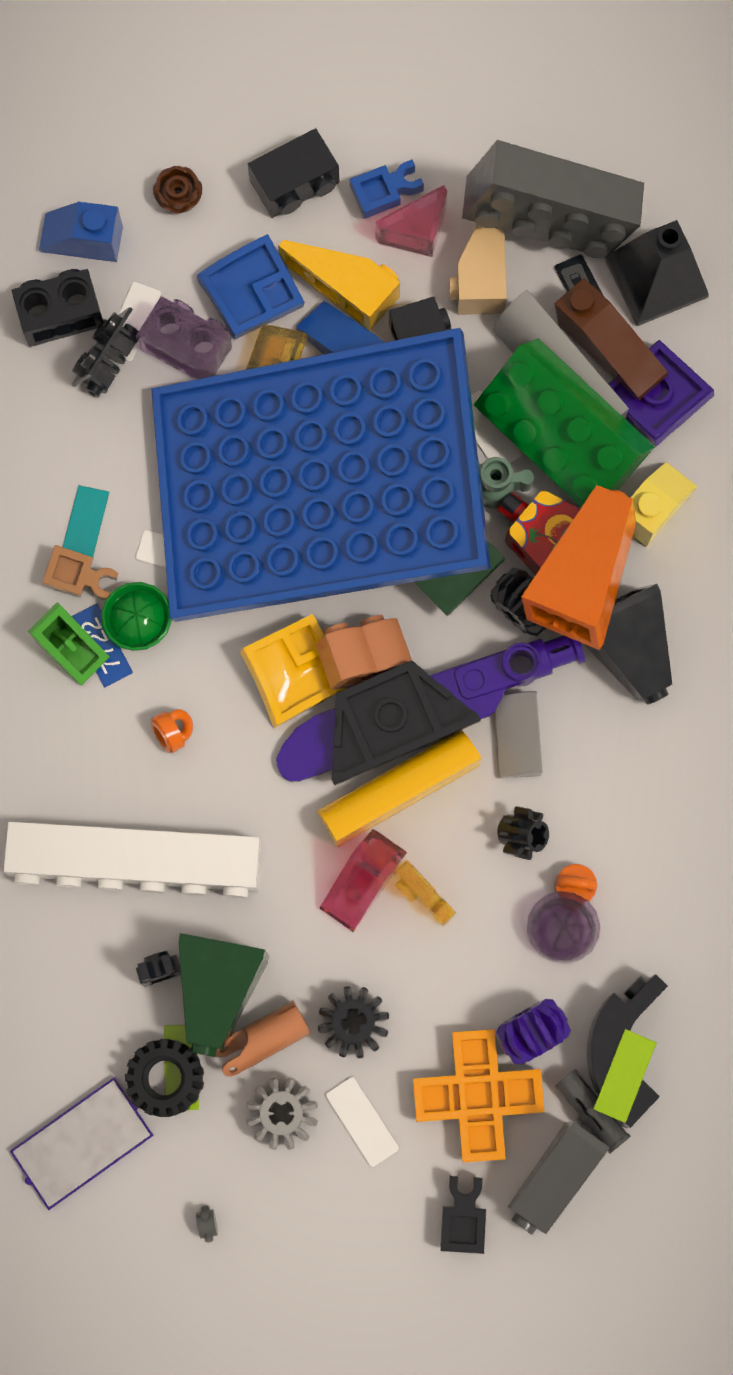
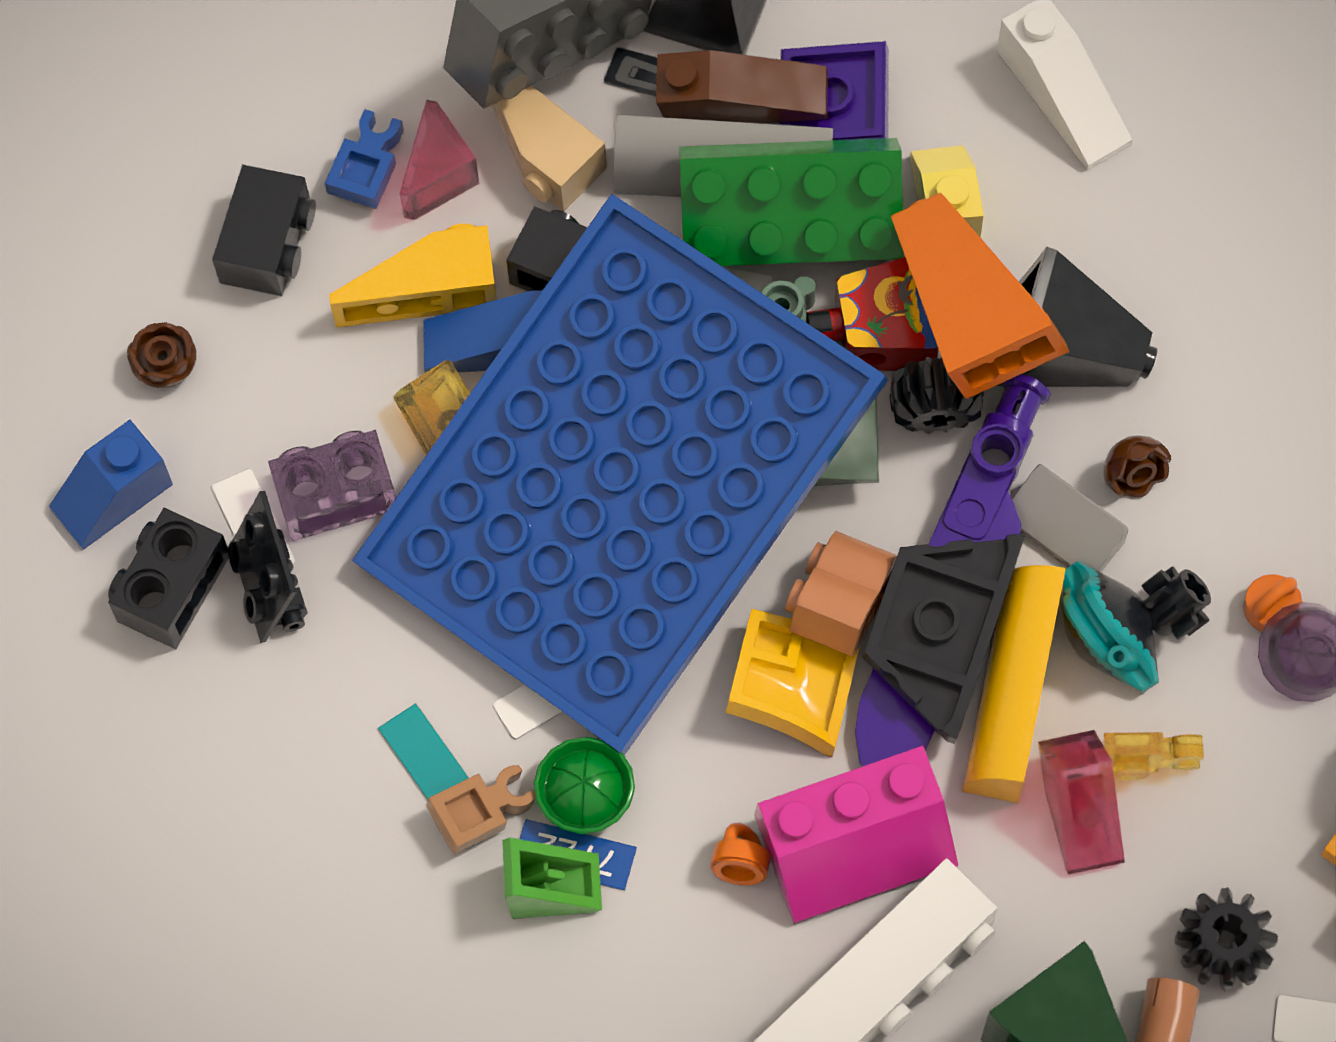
camera: 45 degrees left, 10 degrees down
(234, 779) = (856, 834): none -> dark pink slope
(251, 287) = (339, 374): blue plate -> none
(478, 808) = (1109, 626): none -> teal hat
(586, 743) = (1136, 465): none -> reddish brown plate

